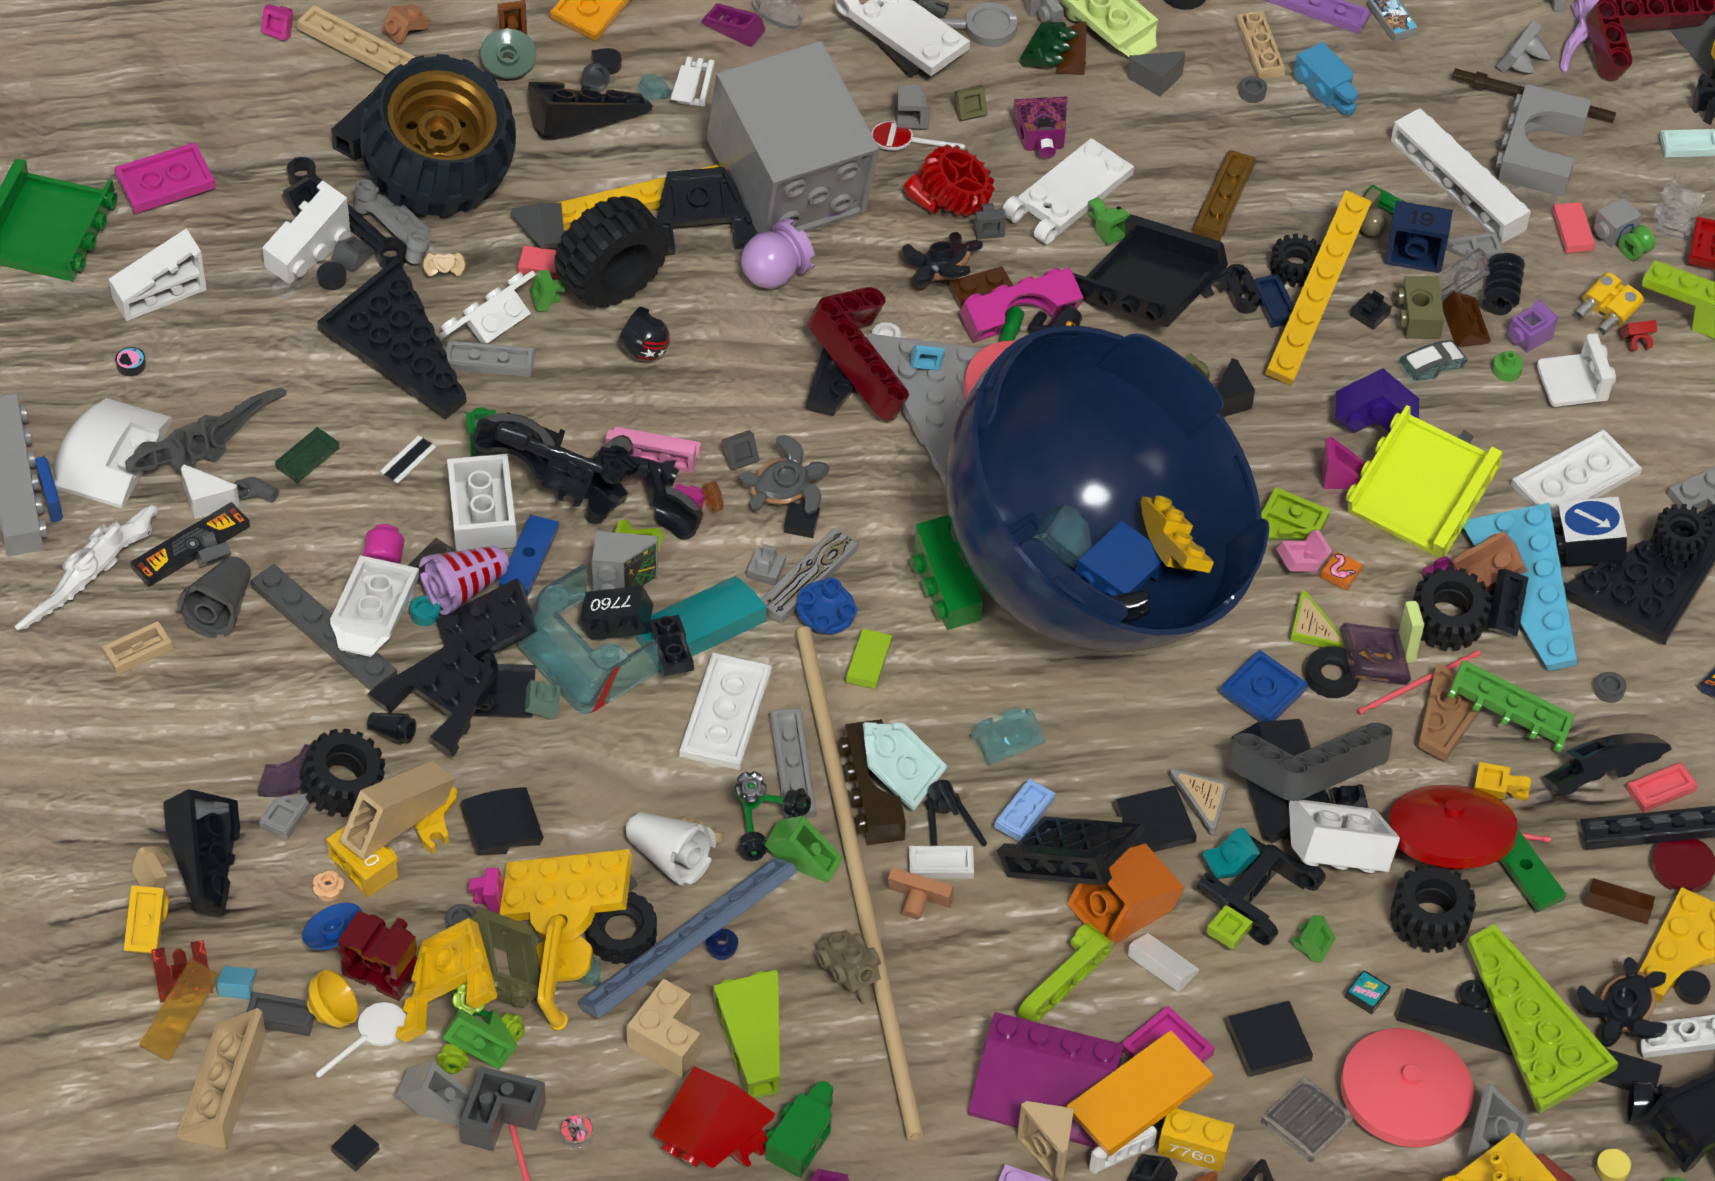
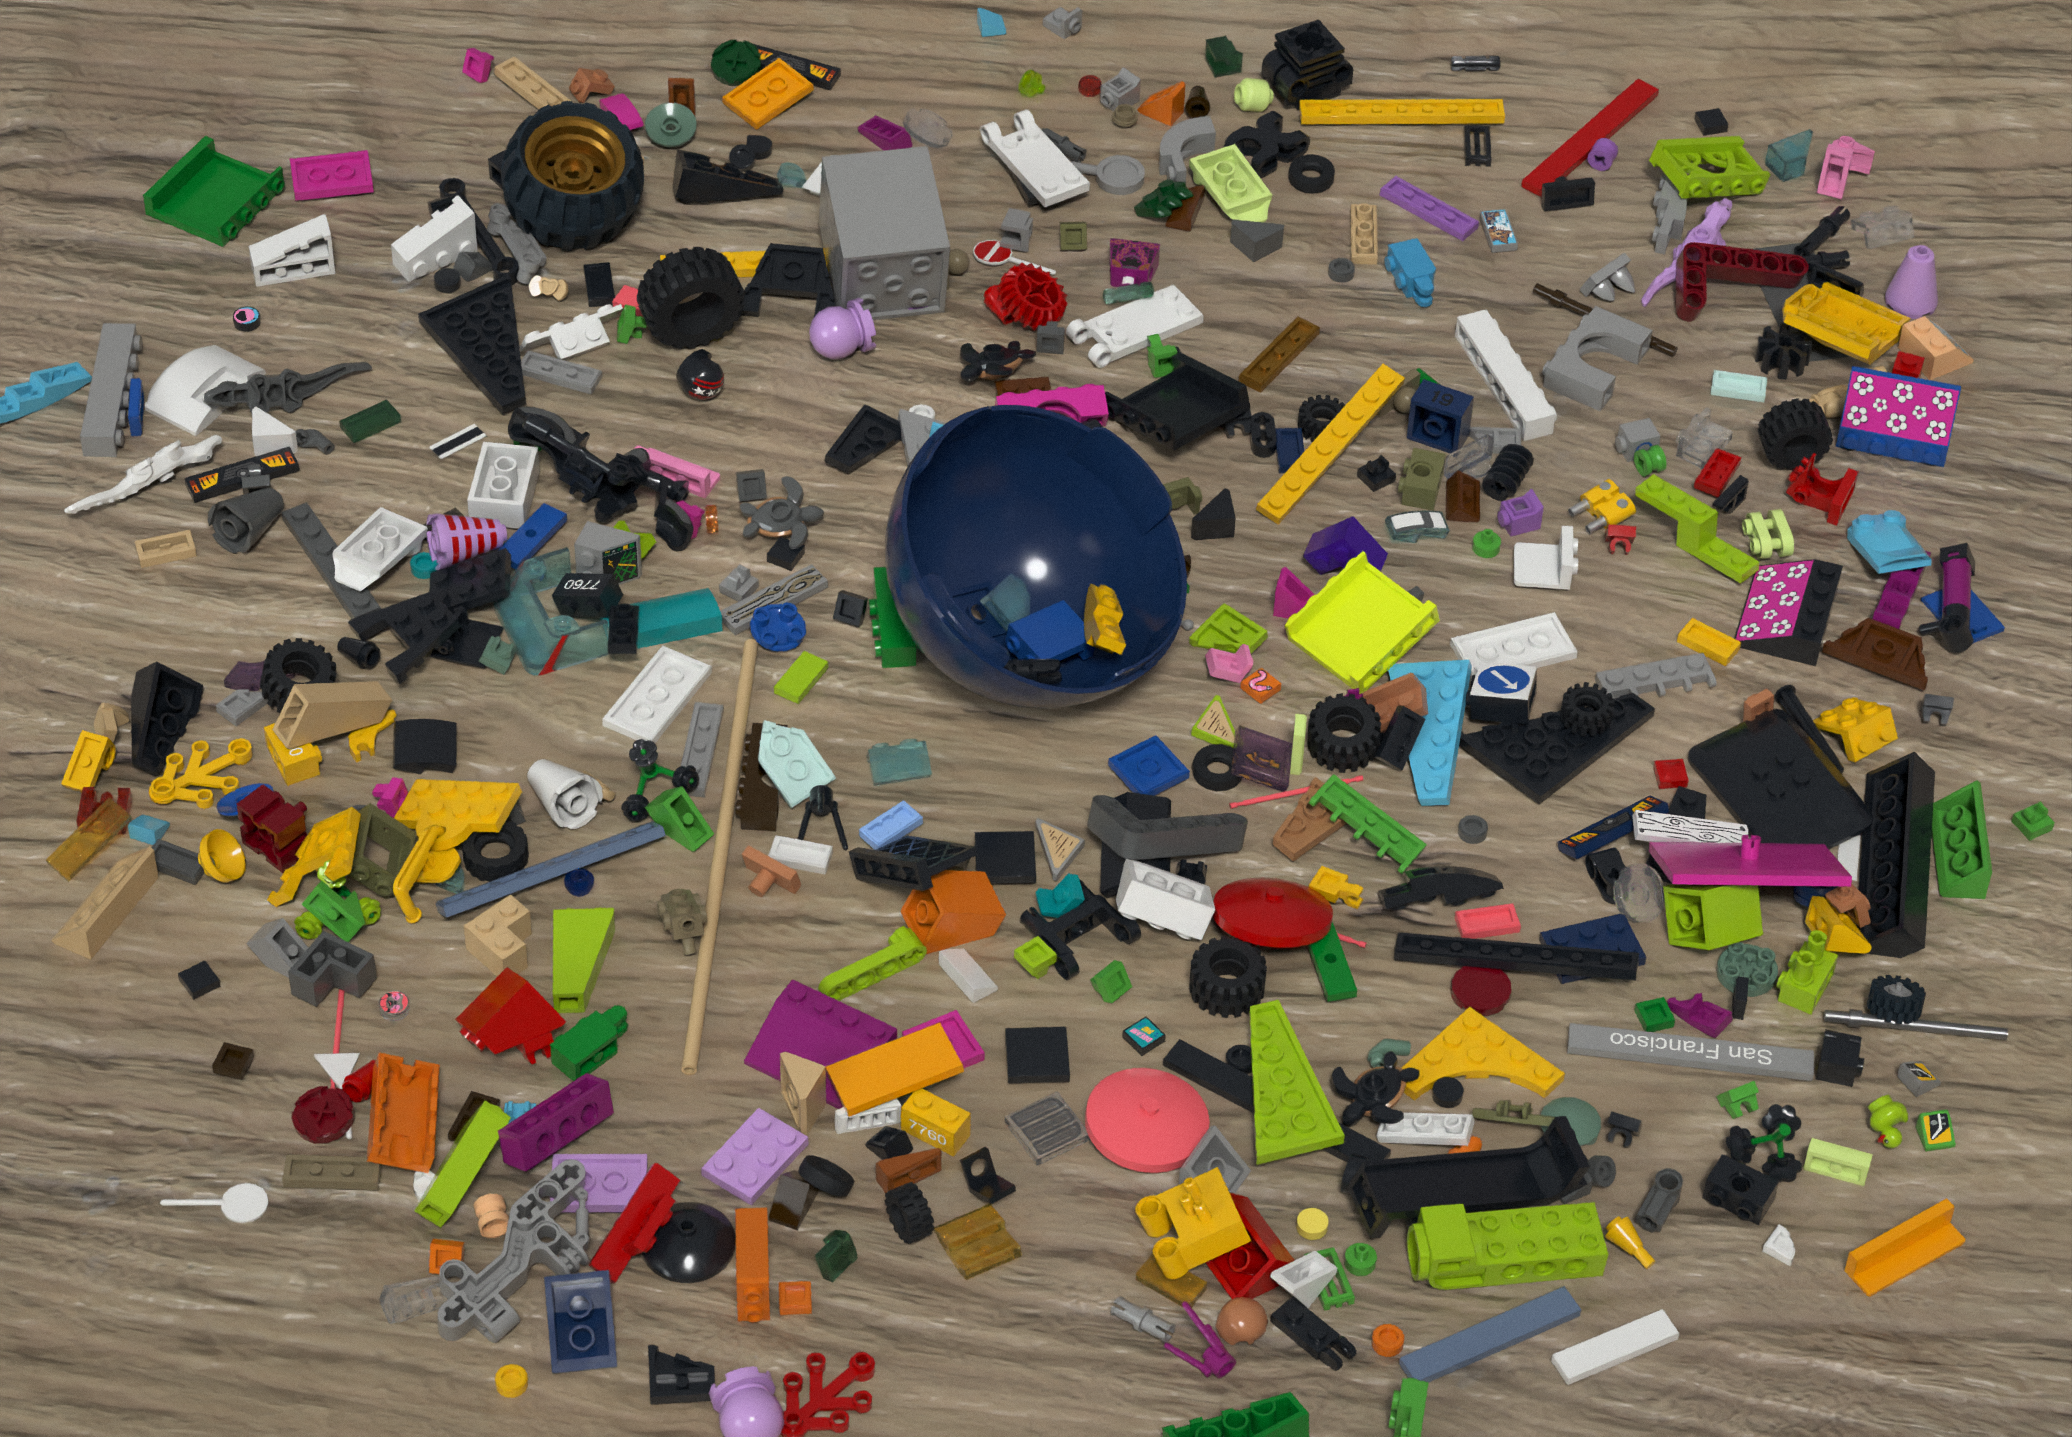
camera: 15 degrees right, 5 degrees down
(269, 907) = (166, 789): none -> yellow plant
(331, 891) = (255, 768): light nougat plate -> none
(376, 1026) = (253, 890): white piece -> none
(384, 543) = (407, 502): dark pink head -> none
(447, 42) = (623, 109): none -> dark pink slope
(495, 249) = (599, 284): none -> black tile
(542, 222) = (640, 261): dark grey slope -> none
(837, 327) = (872, 398): dark red beam -> none
(894, 570) = (850, 608): none -> black tile
(1051, 156) = (1128, 293): none -> clear green axle
(1573, 227) = (1596, 438): coral tile -> none
(1610, 960) = (1377, 1053): none -> sand green arm
(1620, 901) = (1408, 1008): reddish brown slope -> none

